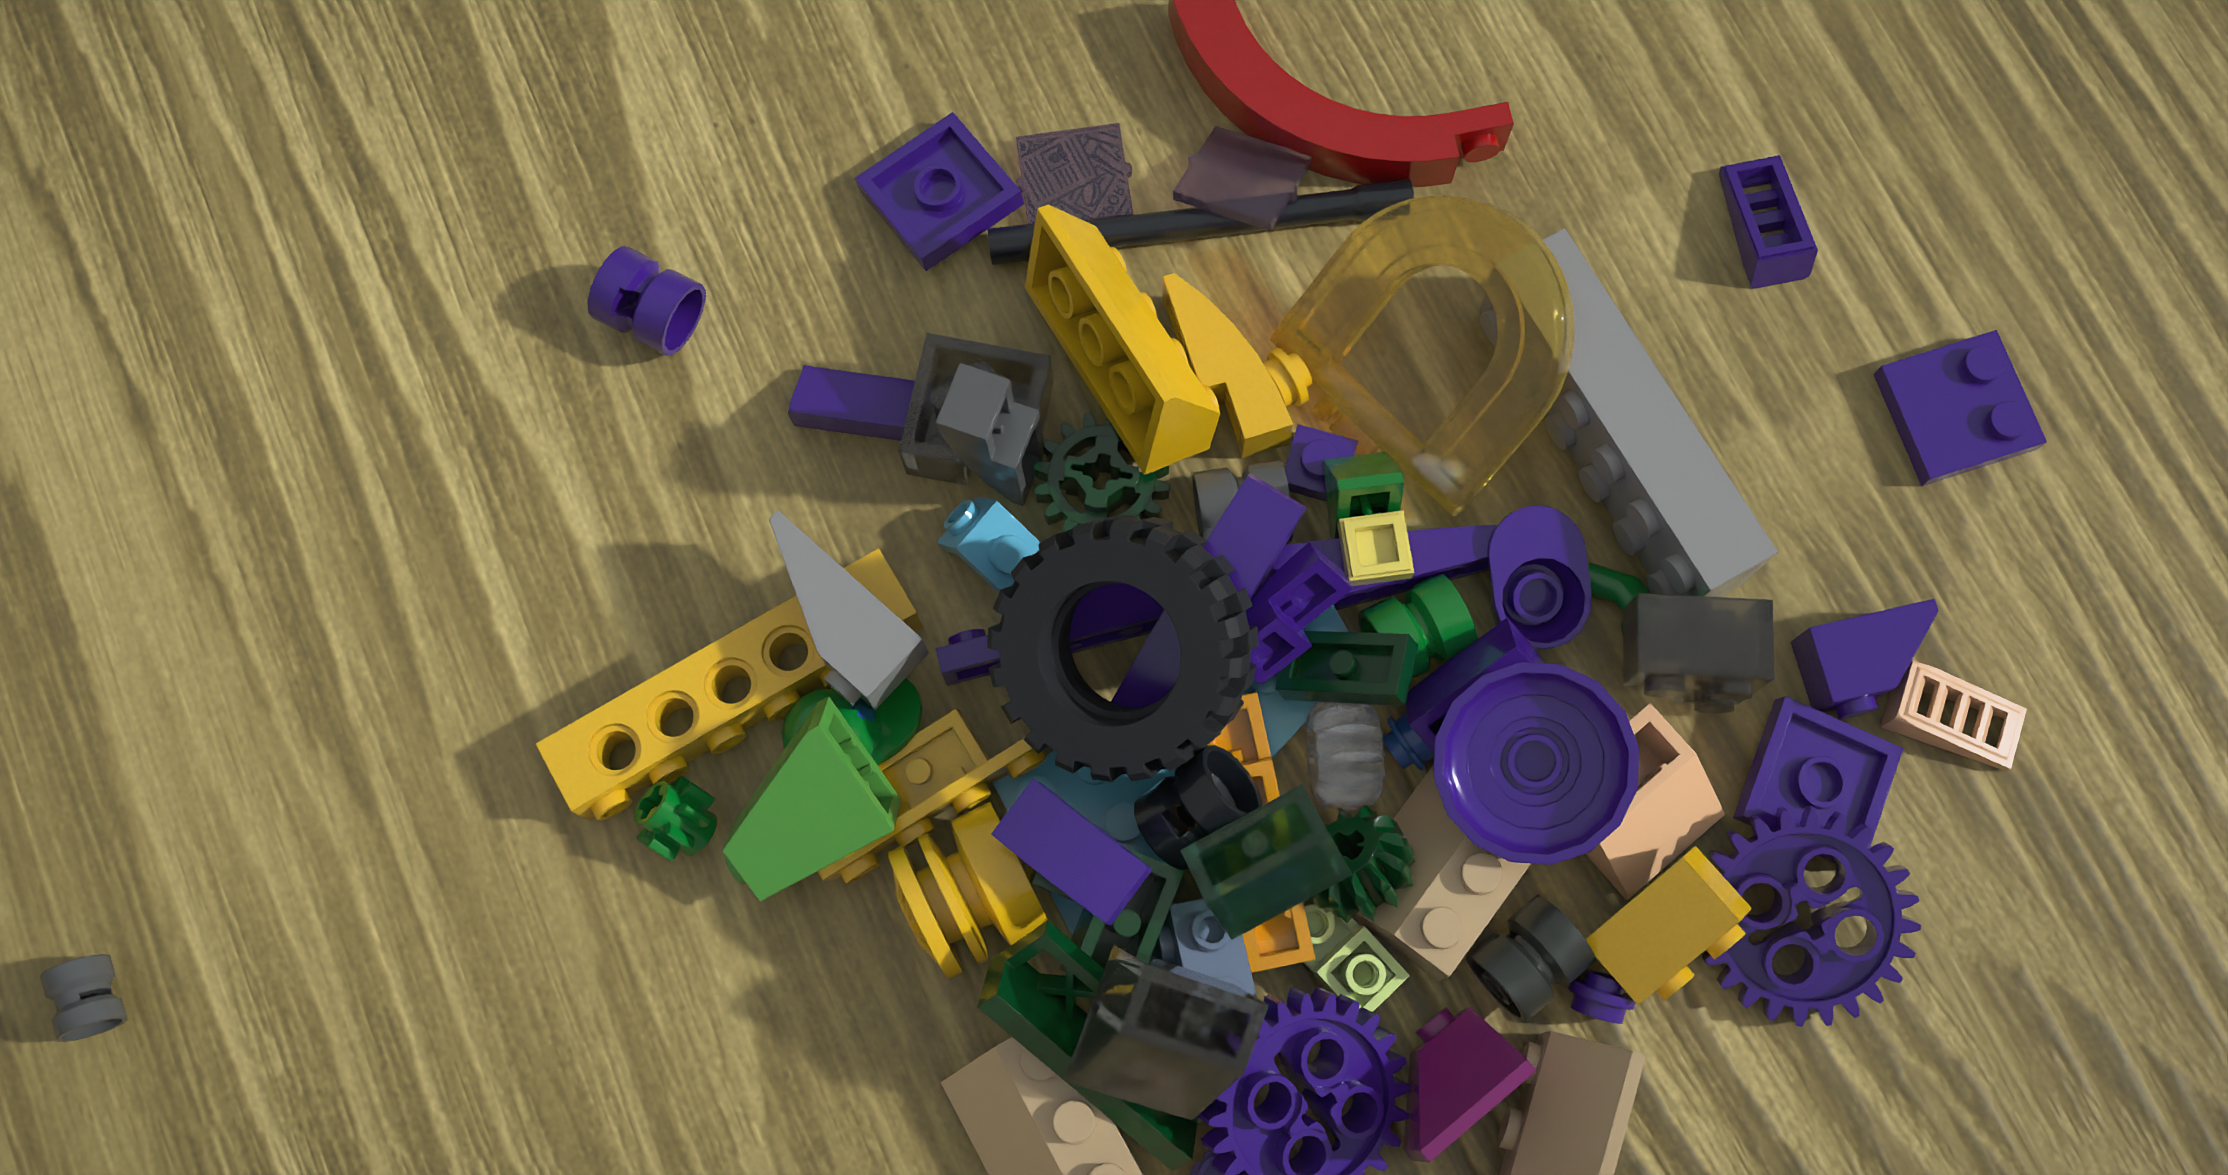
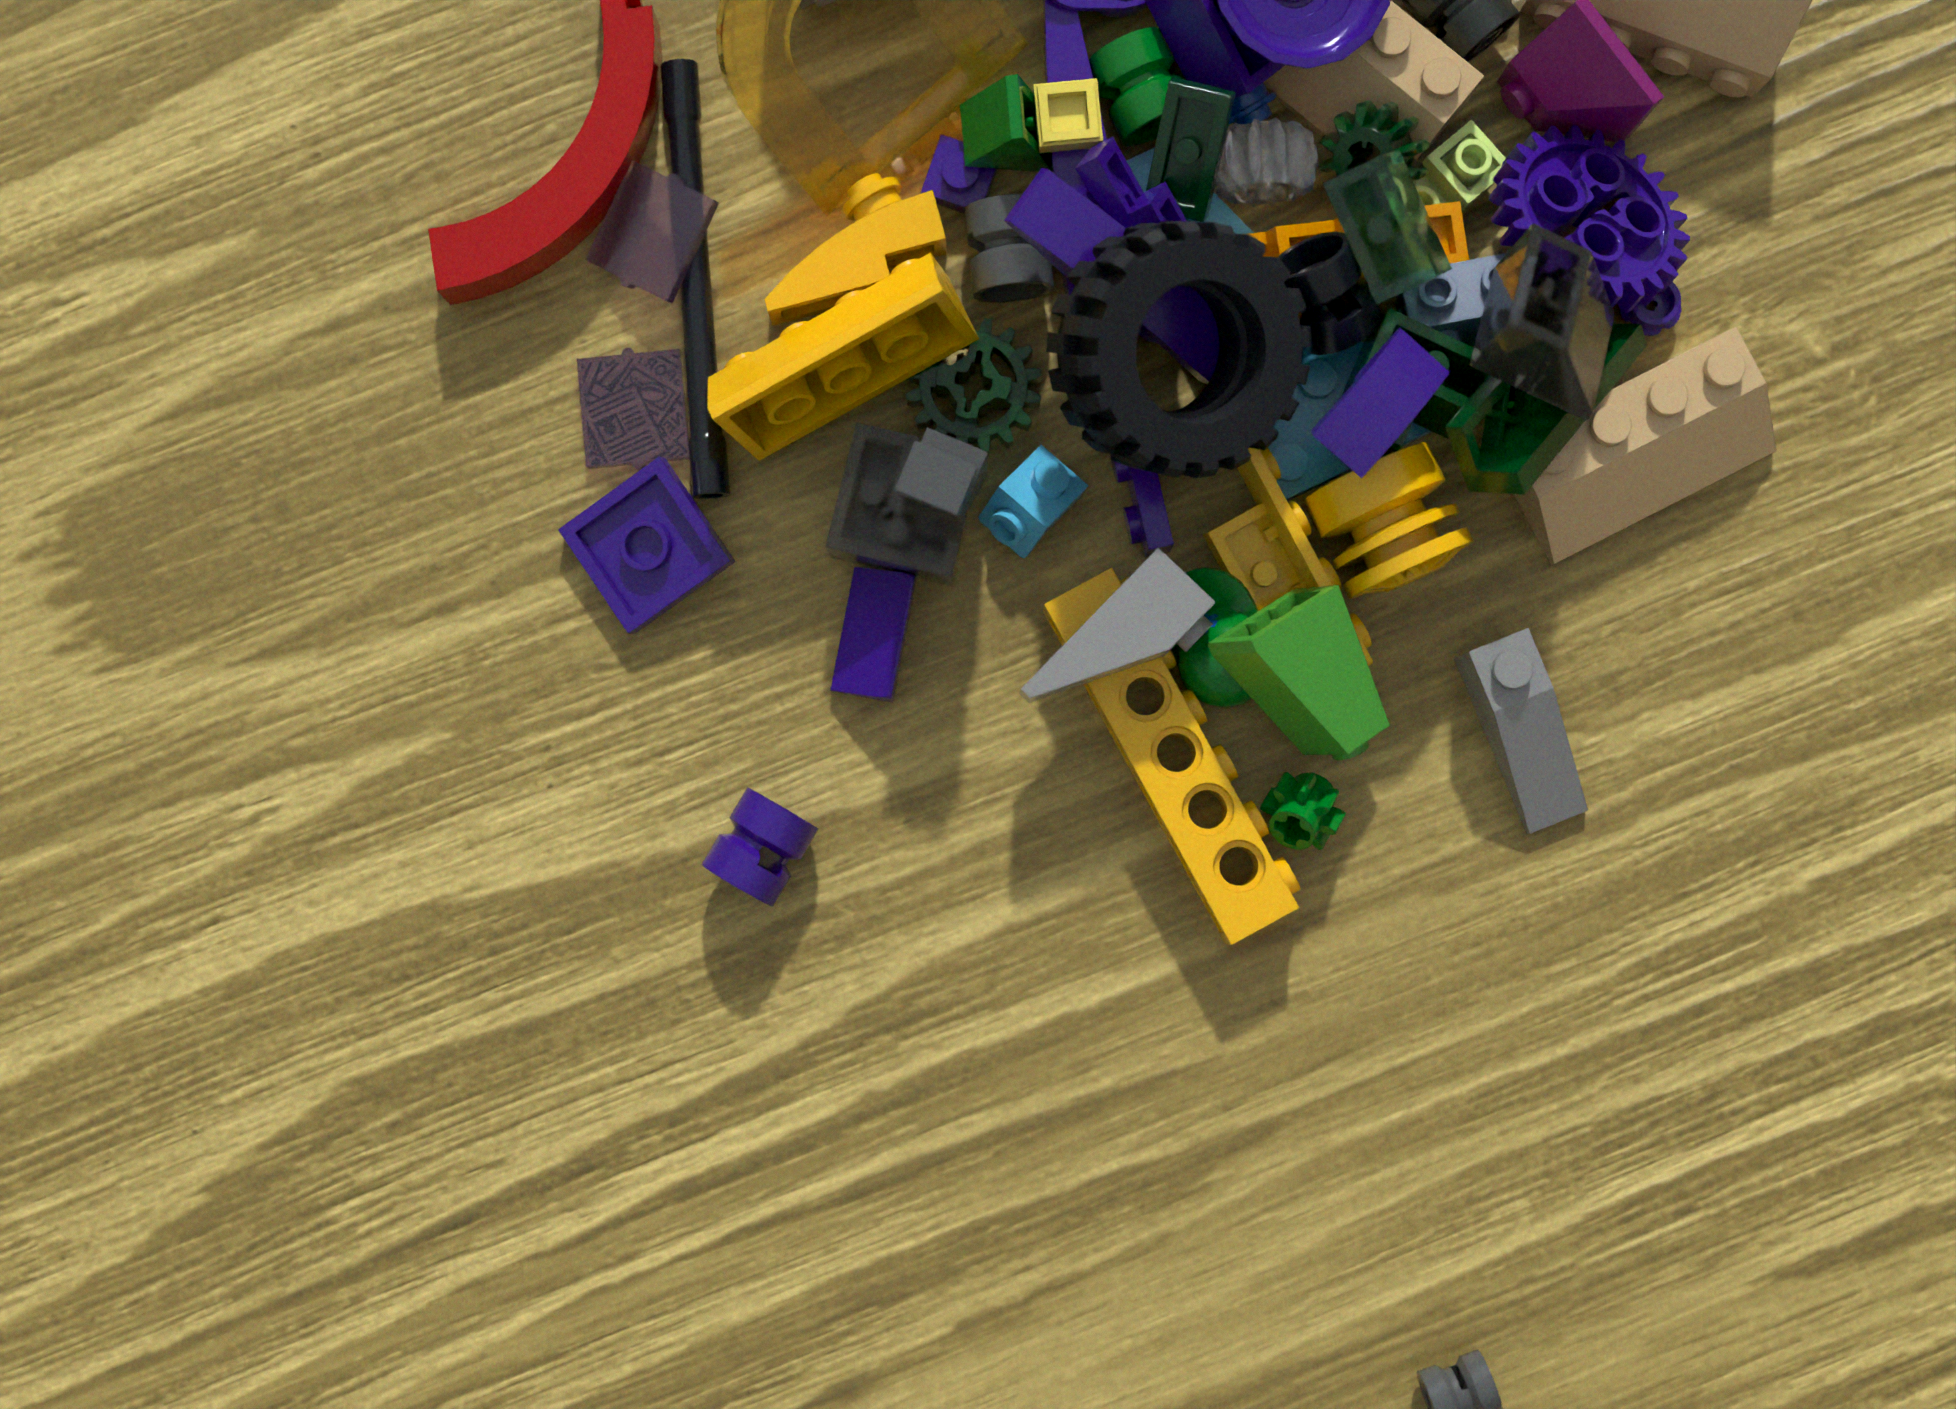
camera: 90 degrees left, 10 degrees up
(761, 1049) = (1524, 729): none -> light grey slope

